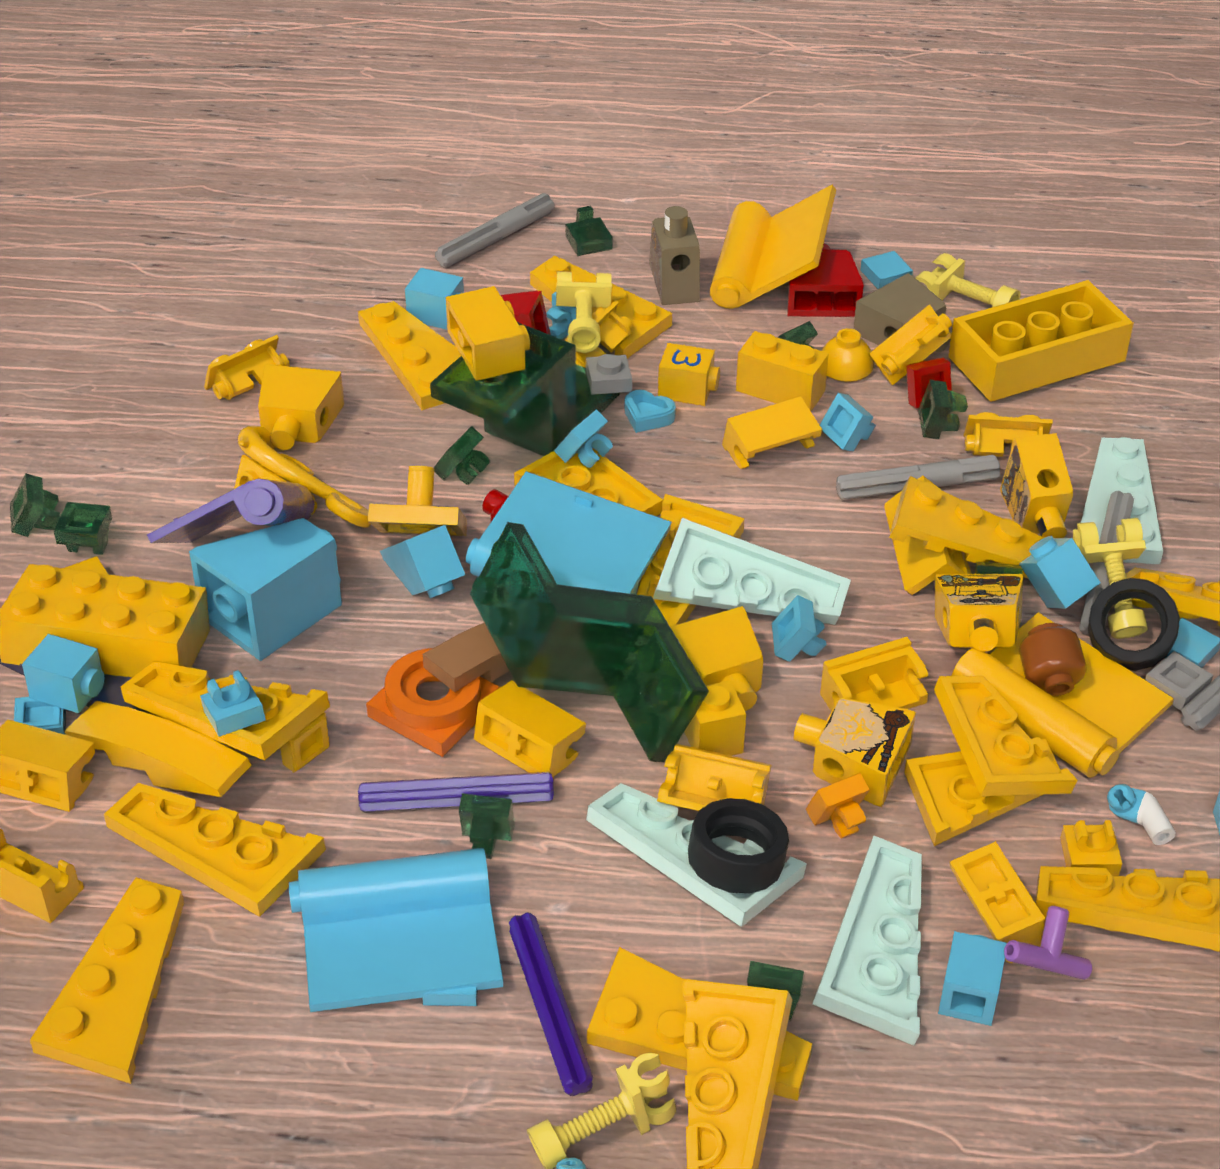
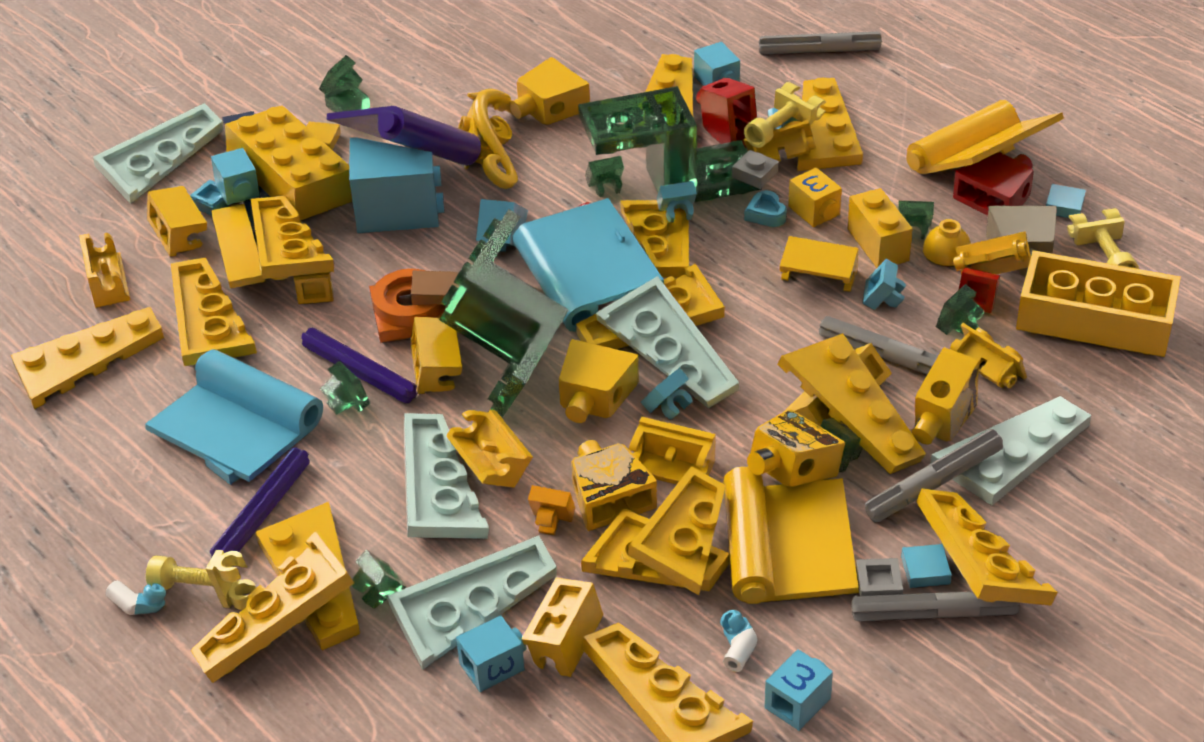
camera: 45 degrees right, 0 degrees up
(230, 373) = (566, 52): yellow hinge -> none
(232, 706) = (273, 237): medium azure tile -> none
(418, 513) = (524, 190): yellow tile -> none
(486, 333) = (638, 87): yellow brick -> none
(588, 233) = (880, 74): clear green tile -> none
(675, 244) = (903, 115): dark tan torso -> none
(719, 721) = (539, 413): yellow brick -> none
(733, 871) = (451, 464): black tyre -> none
(1049, 954) = (546, 671): medium lavender piece -> none
(1052, 658) = (795, 507): dark orange head -> none
(1059, 571) = (878, 456): medium azure brick -> none
(1091, 846) = (675, 639): yellow tile -> none
(1126, 620) = (897, 520): light yellow bar -> none
(1151, 594) = (866, 501): black tyre -> none

